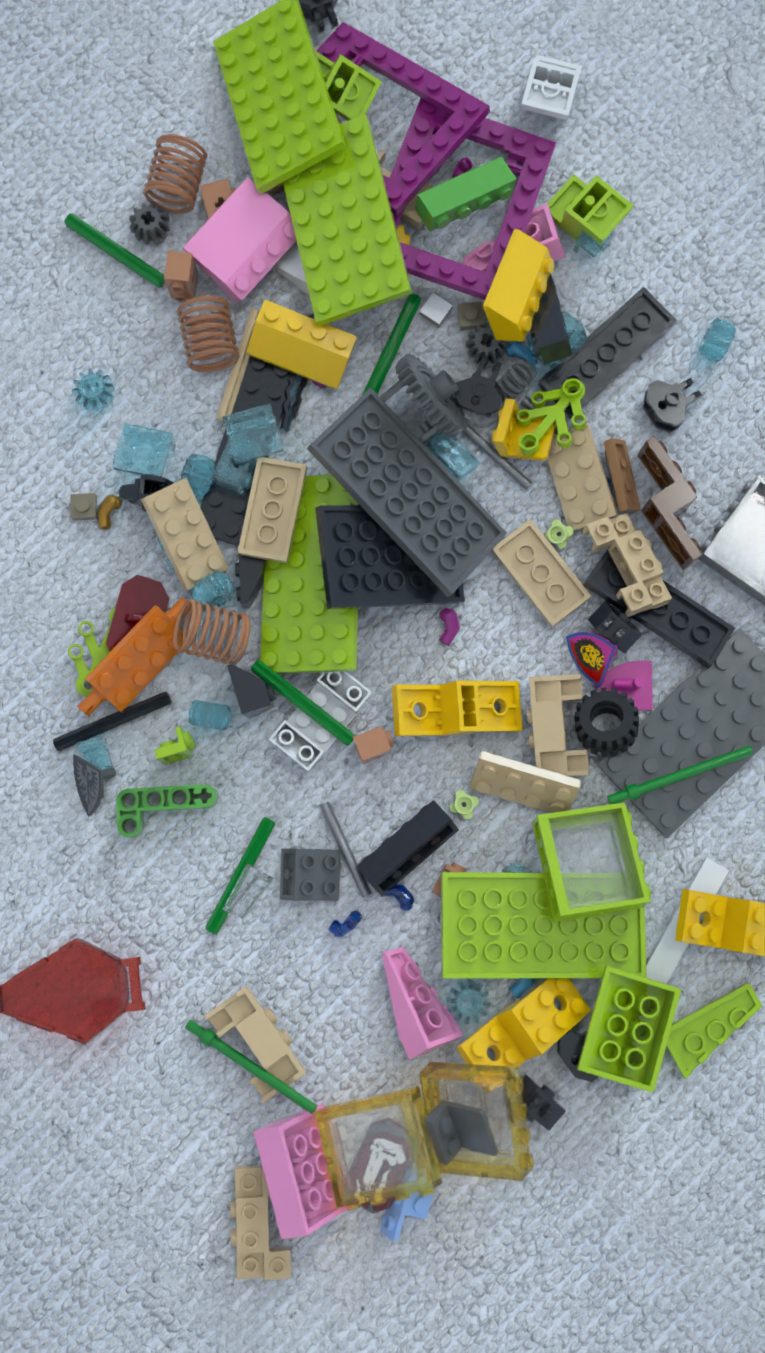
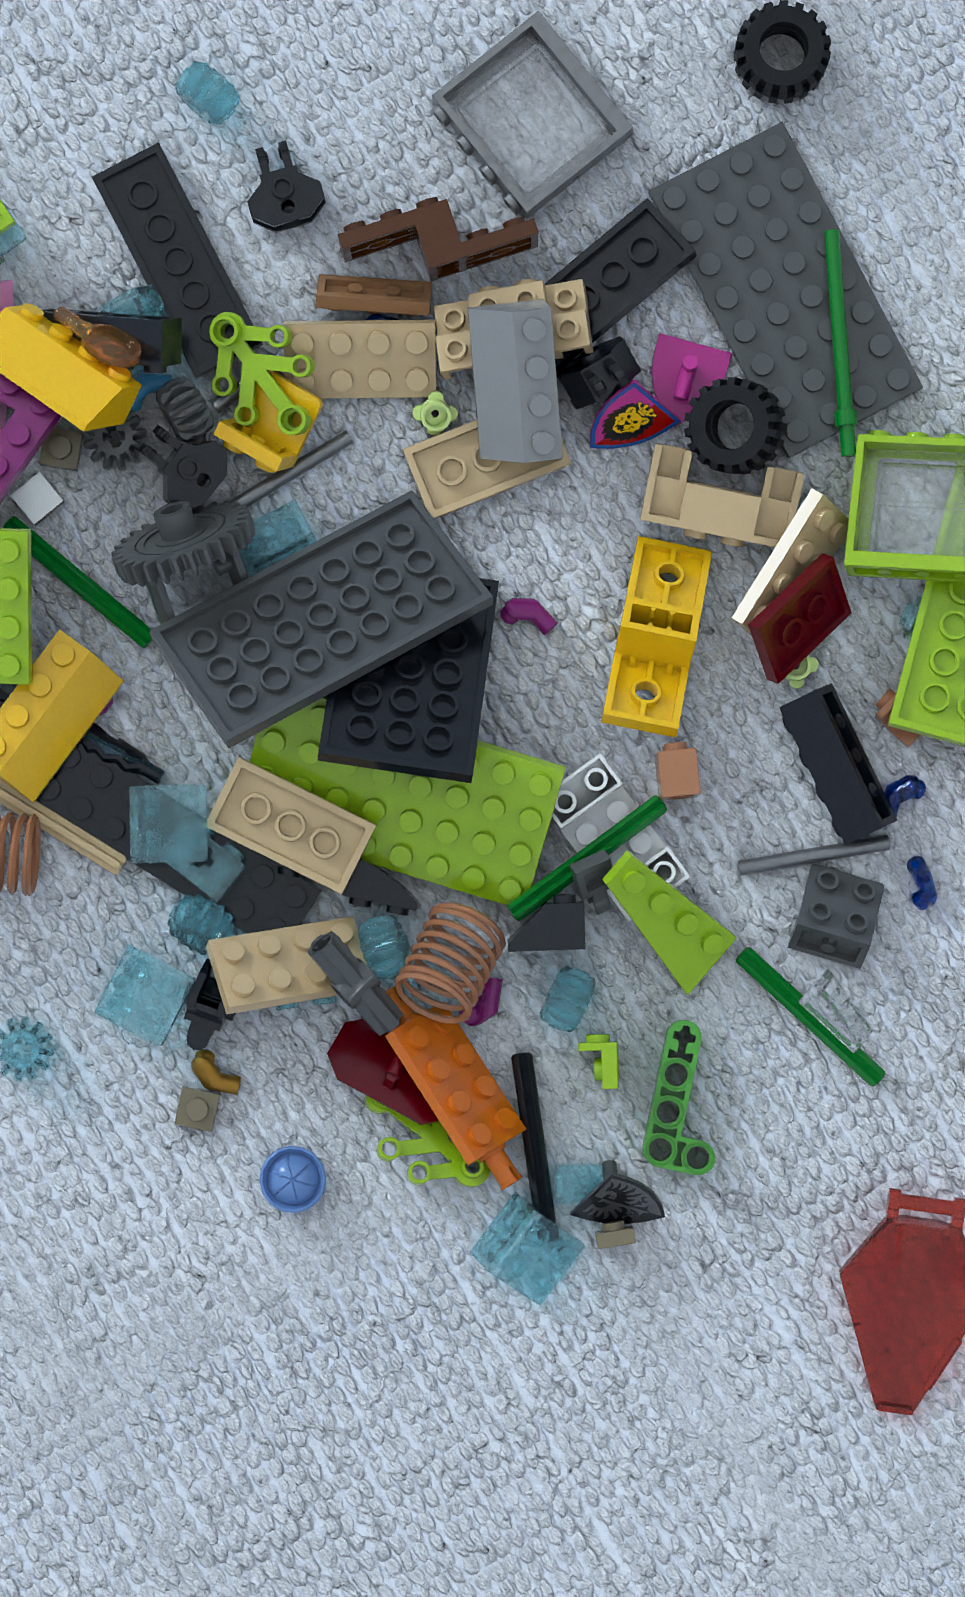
camera: 70 degrees left, 5 degrees up
(44, 733) = (526, 1249): none -> clear light blue bracket
(53, 575) = (292, 1179): none -> medium blue hat
(67, 787) = (614, 1235): none -> dark tan plate
(182, 575) = (355, 983): none -> dark grey piece
(193, 666) = (487, 1004): none -> magenta arm
(275, 767) = (674, 926): none -> lime wing
(289, 709) = (588, 880): none -> dark grey plate
(494, 796) = (800, 618): none -> dark red plate
(542, 308) = (102, 341): none -> clear orange piece
(593, 571) = (515, 381): none -> light grey slope

